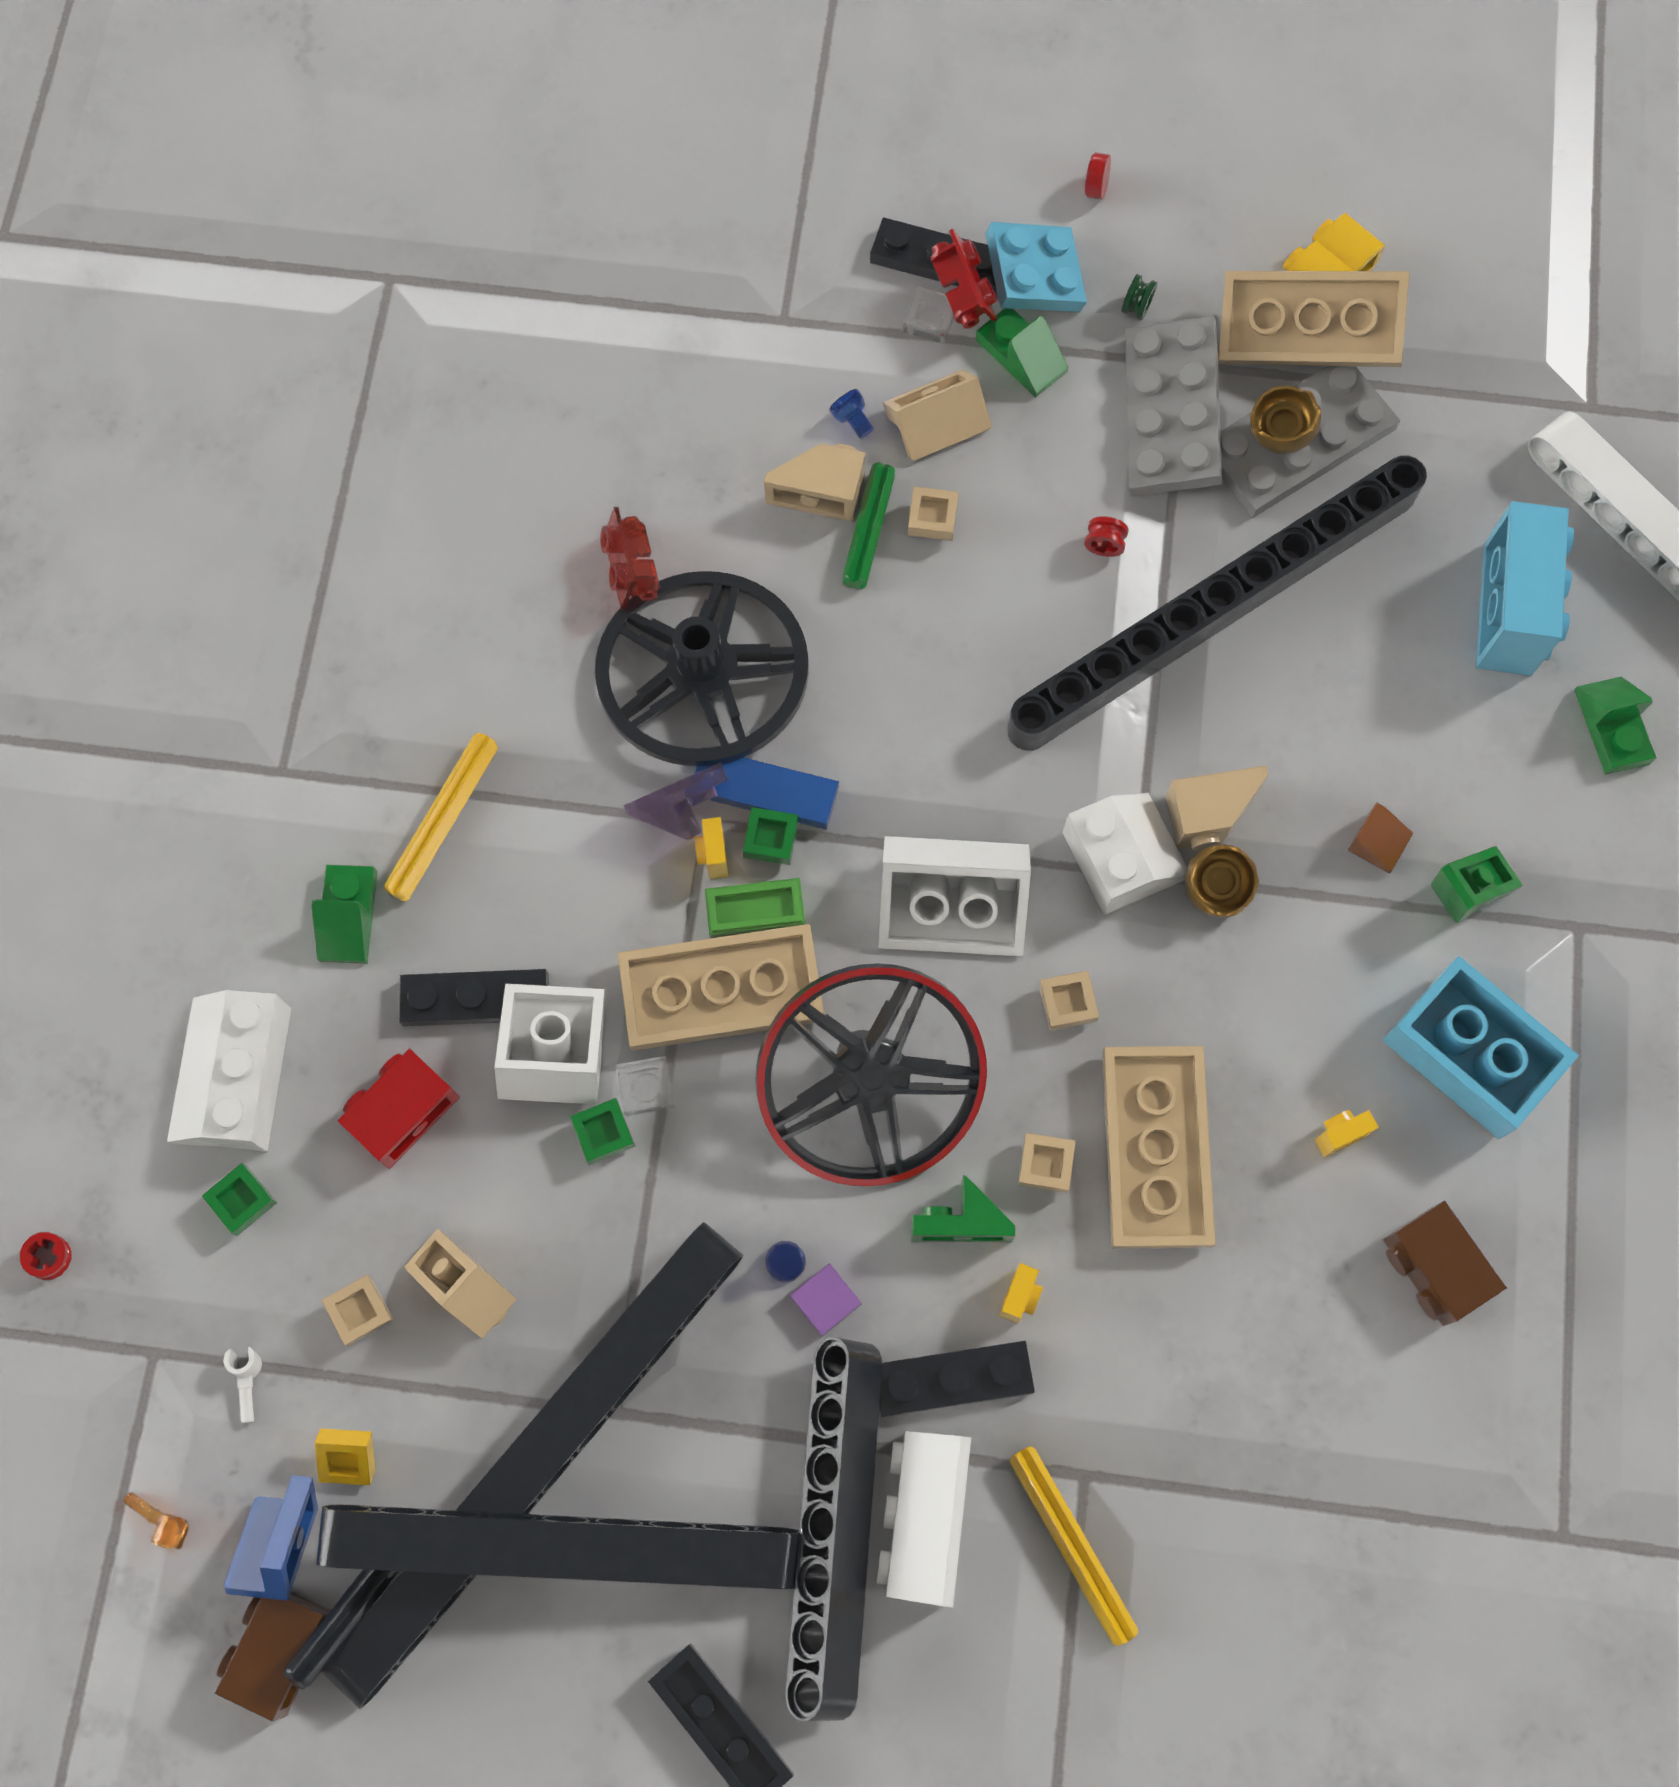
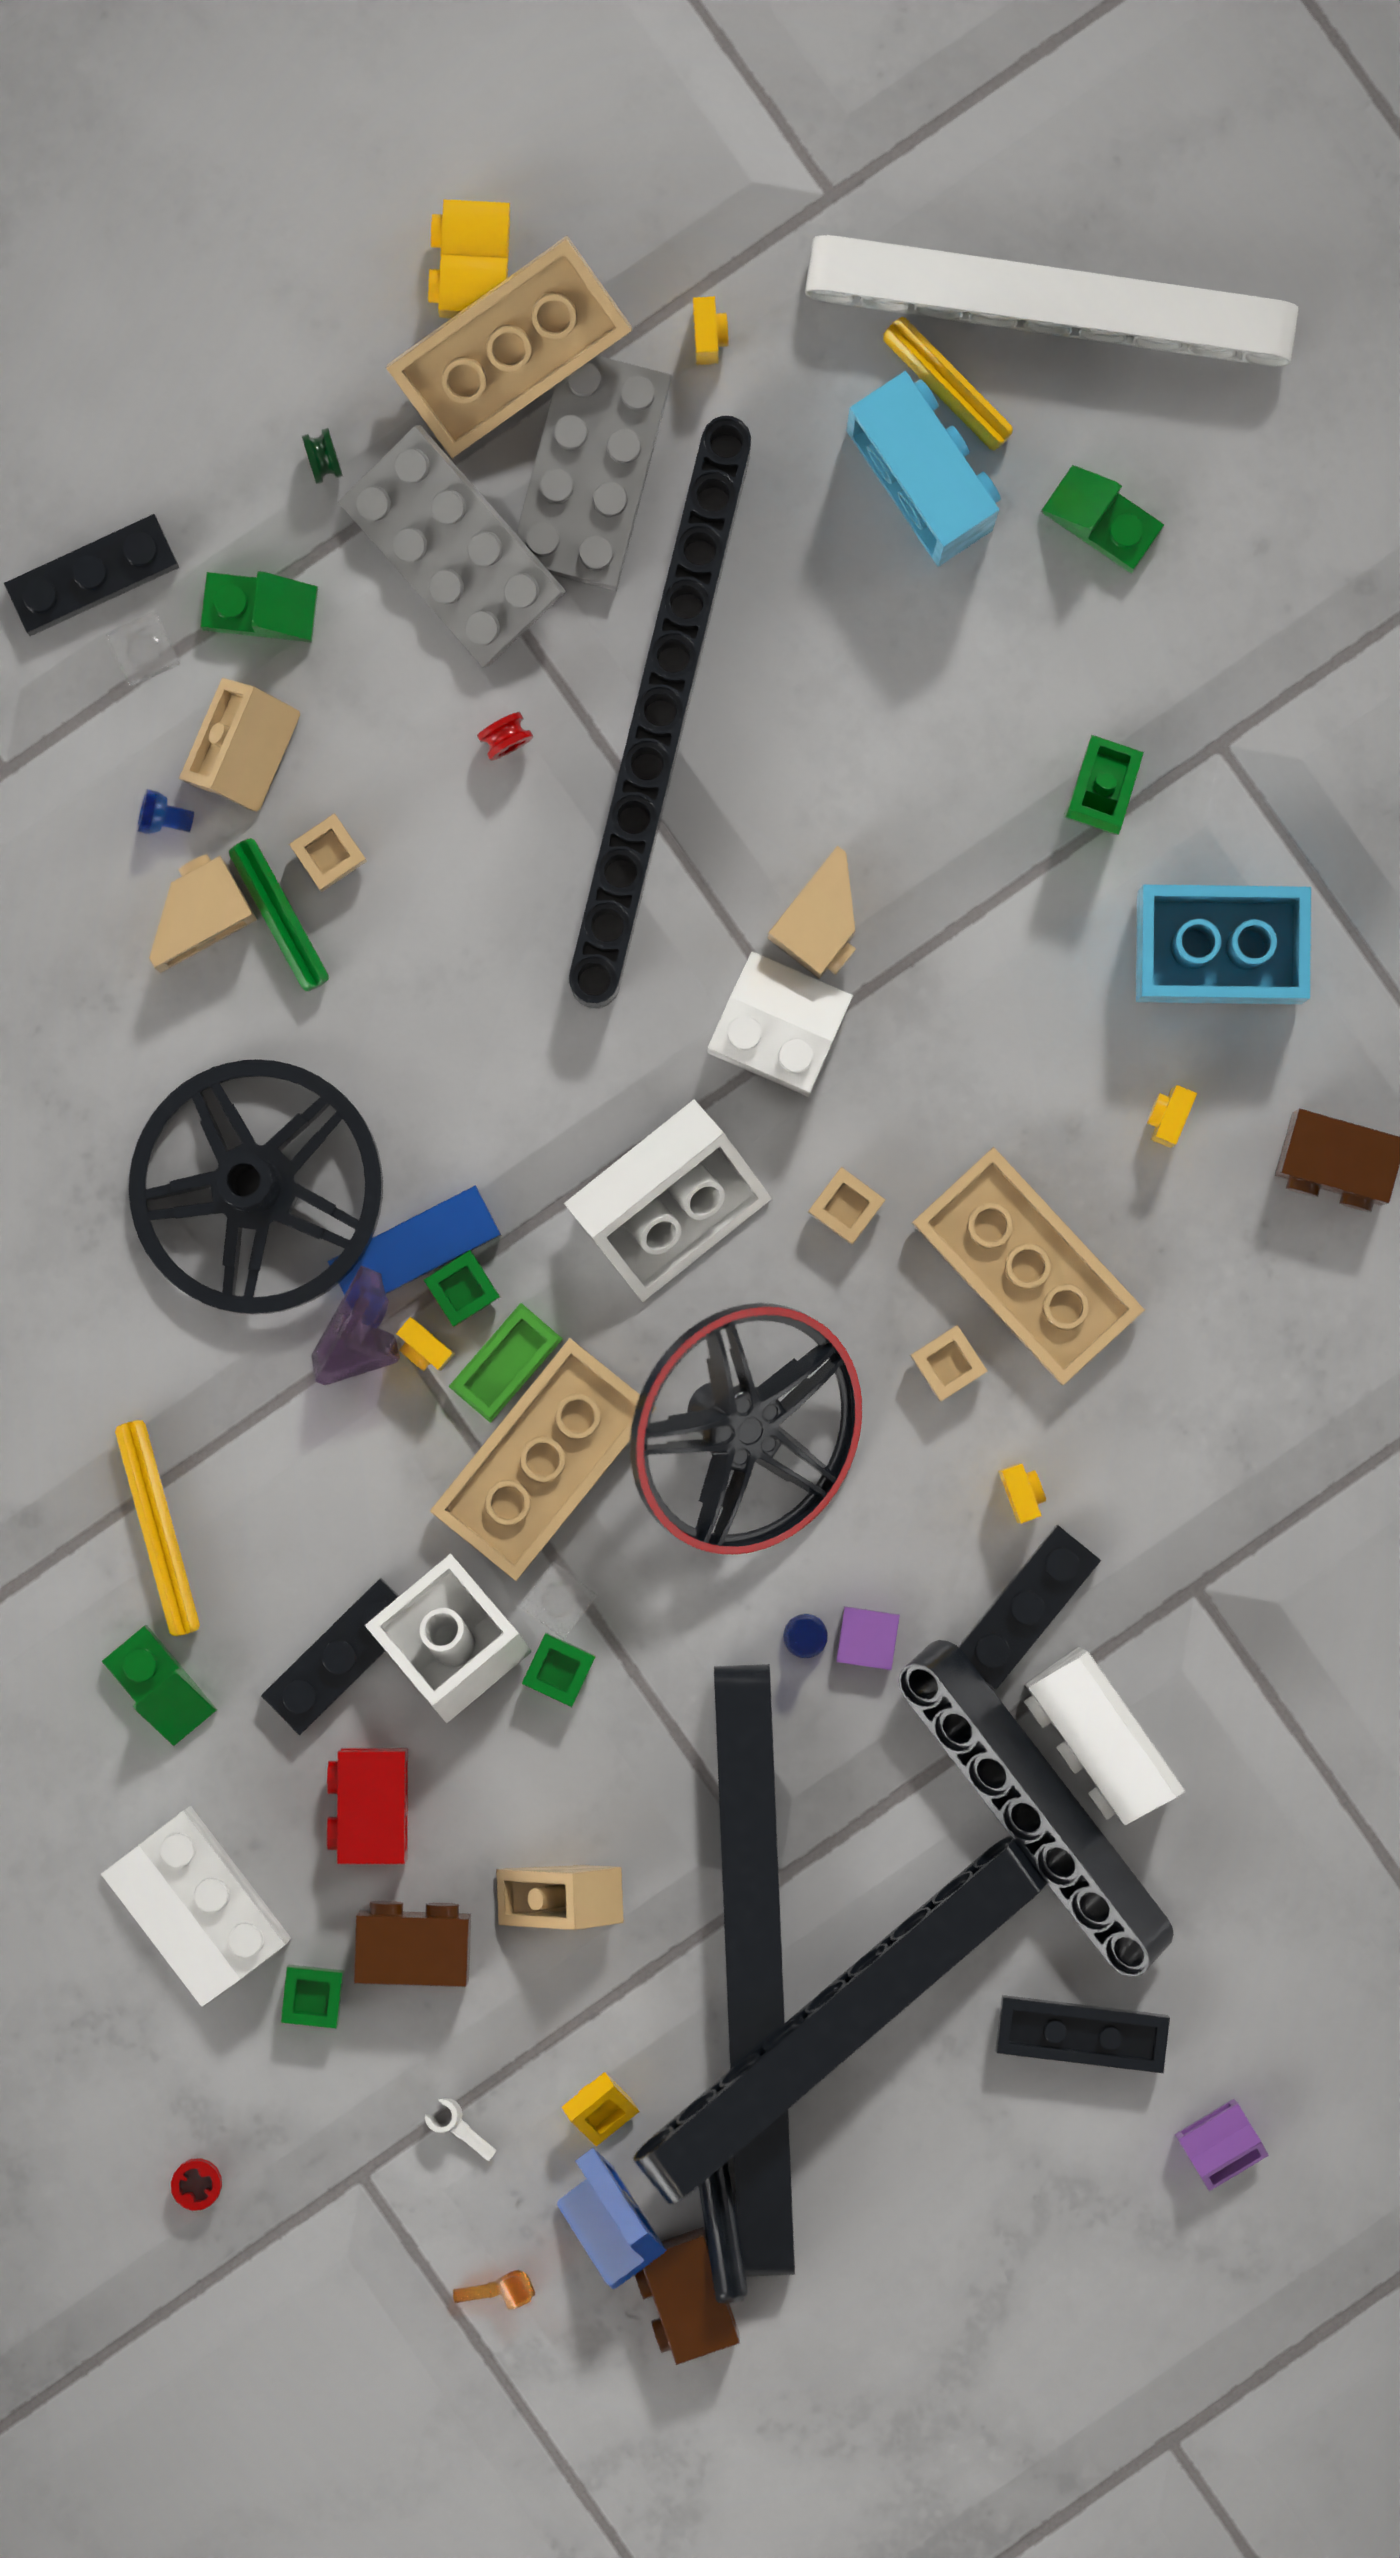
camera: 45 degrees left, 15 degrees up
(333, 1225) = (412, 1946): none -> reddish brown brick
(357, 1310) = (498, 1992): tan plate -> none
(624, 542) = (75, 1132): clear red hinge -> none
(957, 264) = (171, 598): red hinge -> none
(978, 1220) = (935, 1464): green slope -> none
(1035, 267) = (198, 510): medium azure plate -> none
(1074, 1546) = (1233, 1651): yellow axle -> none
(1097, 175) = (169, 355): red tile -> none
(1221, 880) = (885, 983): pearl gold hair -> none
(1285, 419) = (573, 483): pearl gold hair -> none
(1381, 839) = (988, 815): dark orange slope -> none
(1447, 412) = (709, 330): none -> yellow plate
(1582, 593) = (948, 383): none -> yellow axle

